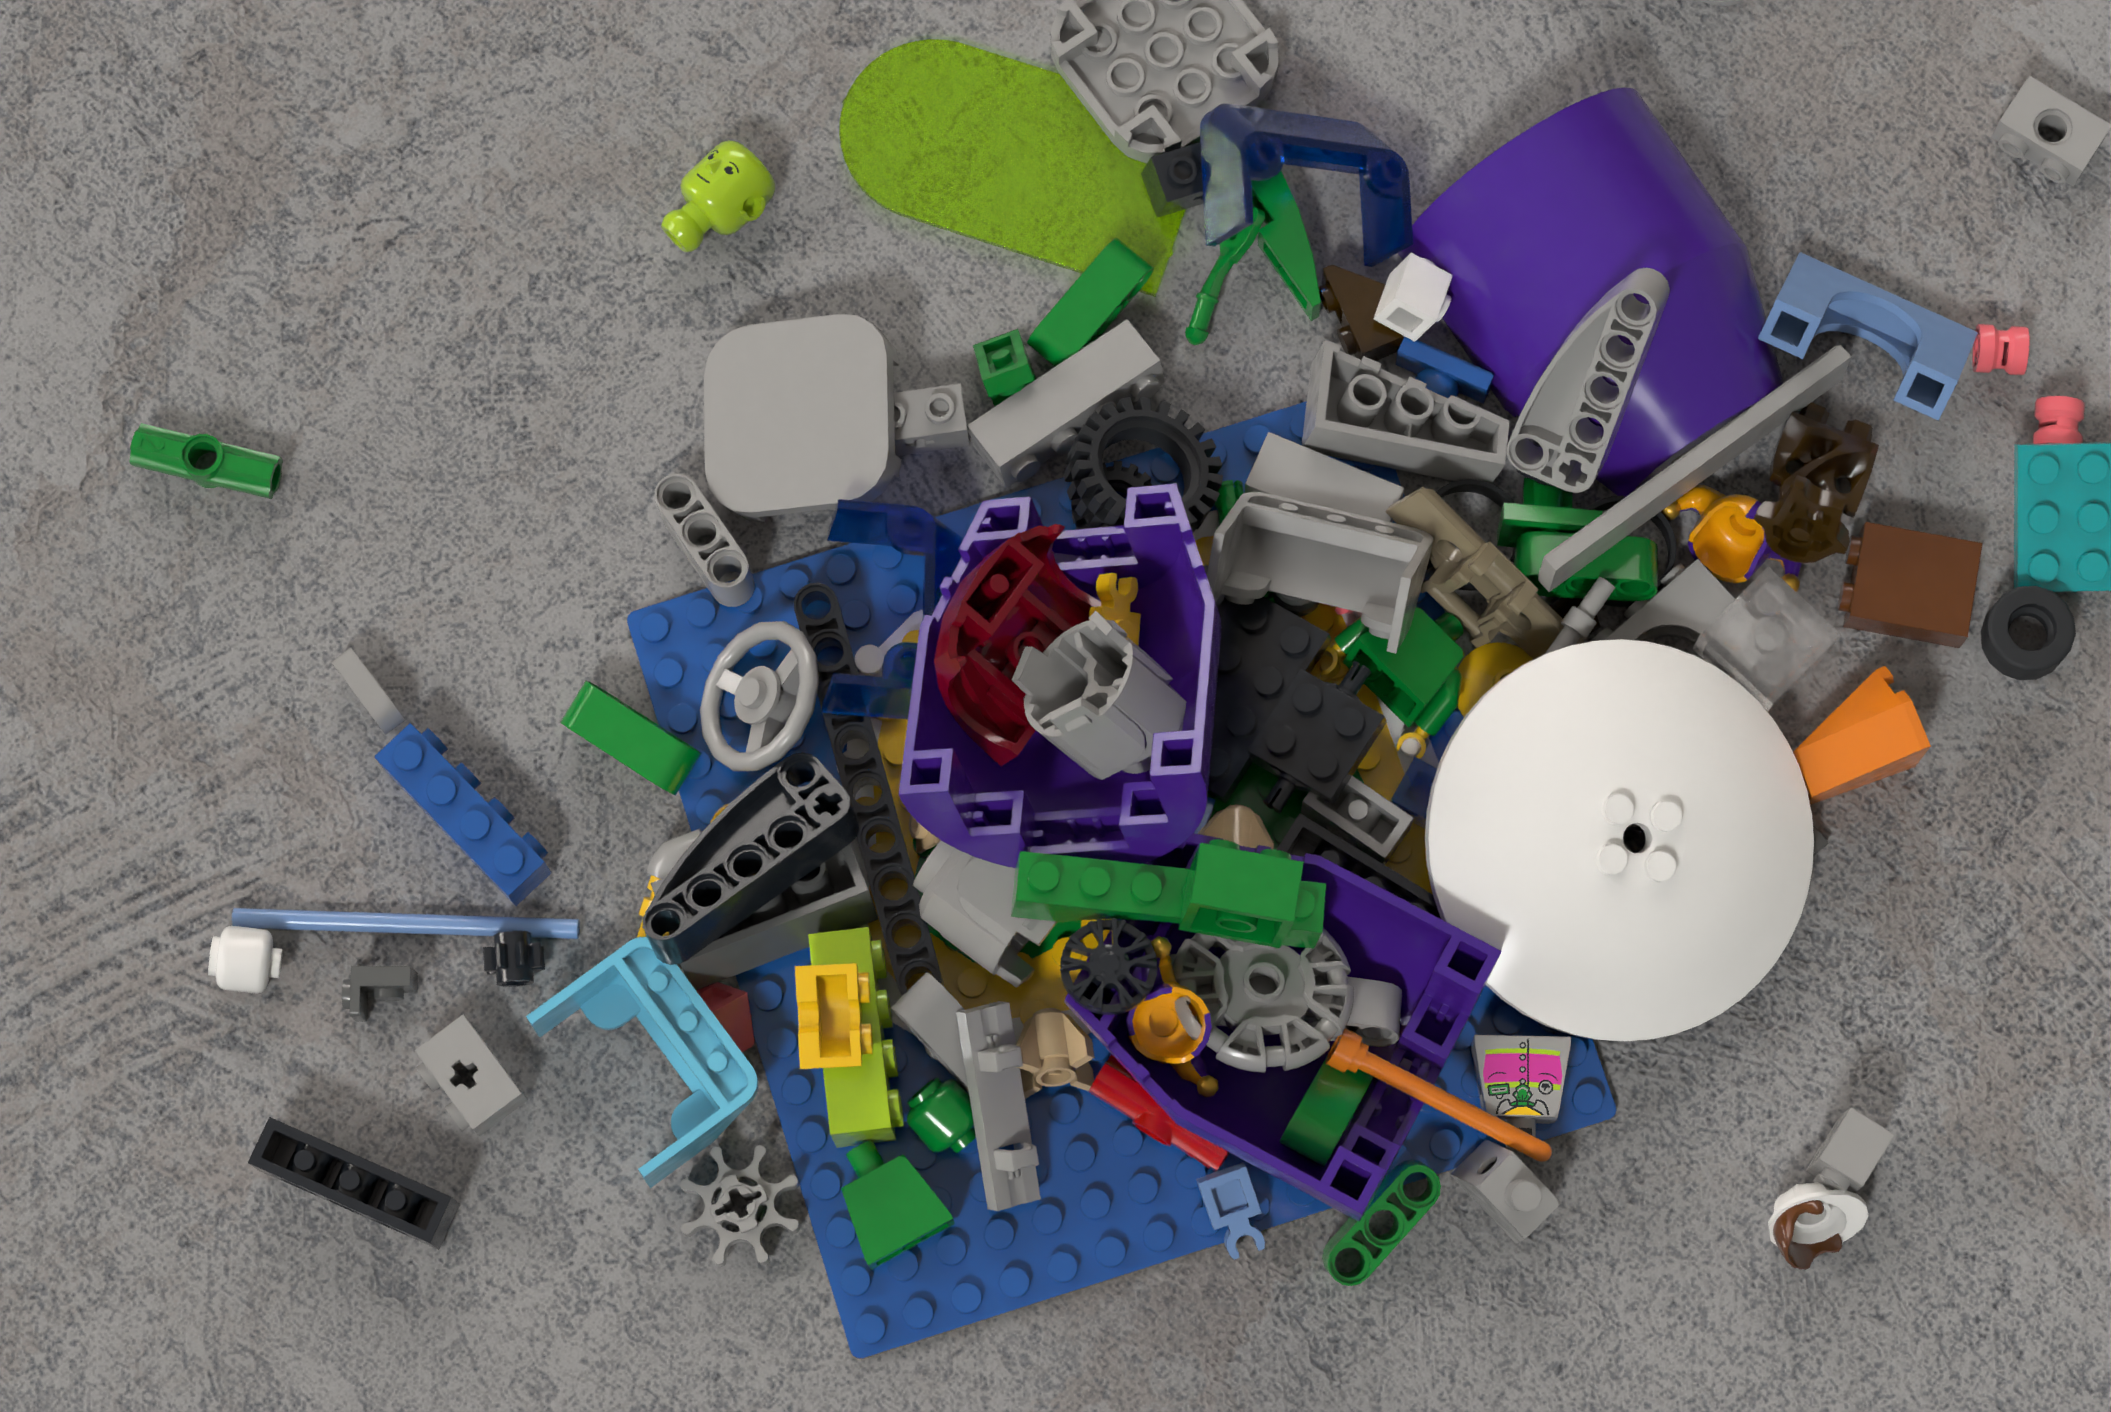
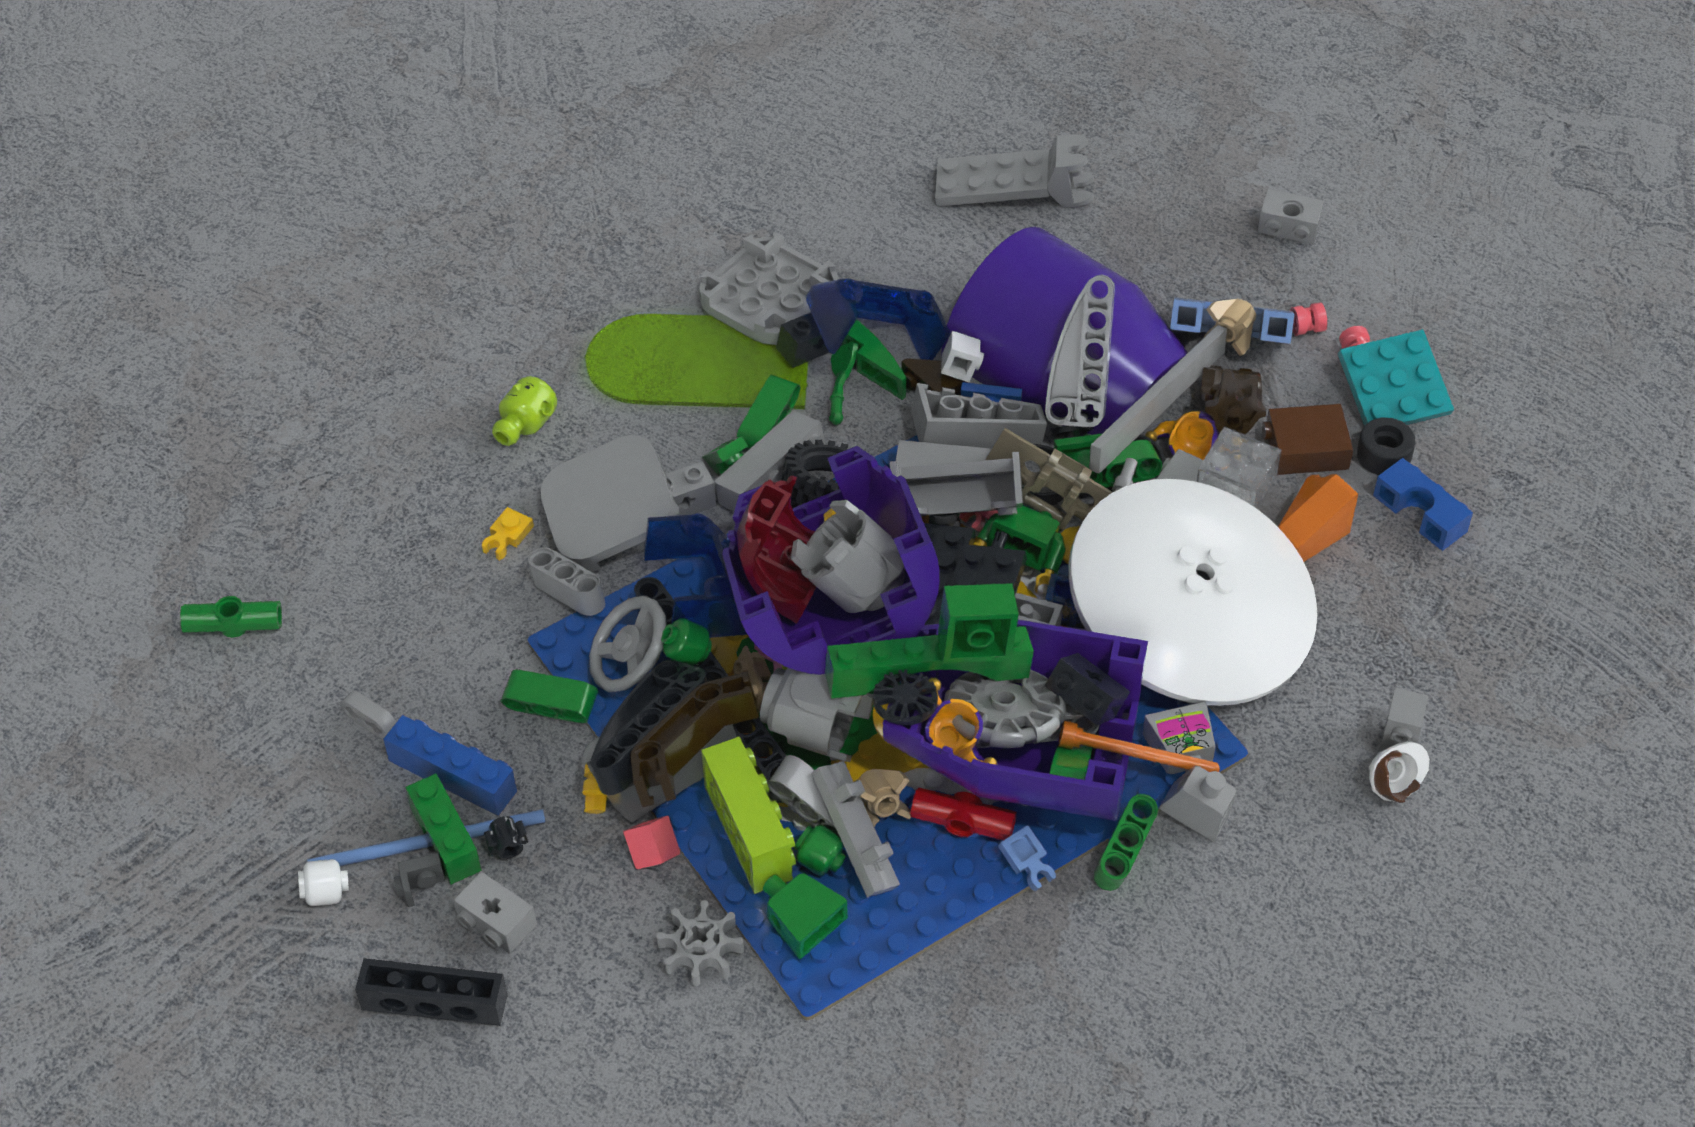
camera: 20 degrees left, 25 degrees down
(428, 920) = (444, 827): none -> green arch
(647, 407) = (508, 529): none -> yellow plate
(684, 1029) = (626, 840): medium azure windscreen -> none
(792, 900) = (688, 730): none -> dark brown piece
(832, 1015) = (730, 778): yellow cylinder -> none
(838, 734) = (686, 642): none -> green head
(1390, 995) = (1087, 688): none -> black brick
(1873, 339) = (1237, 318): none -> tan brick
(2031, 716) = (1407, 486): none -> blue arch

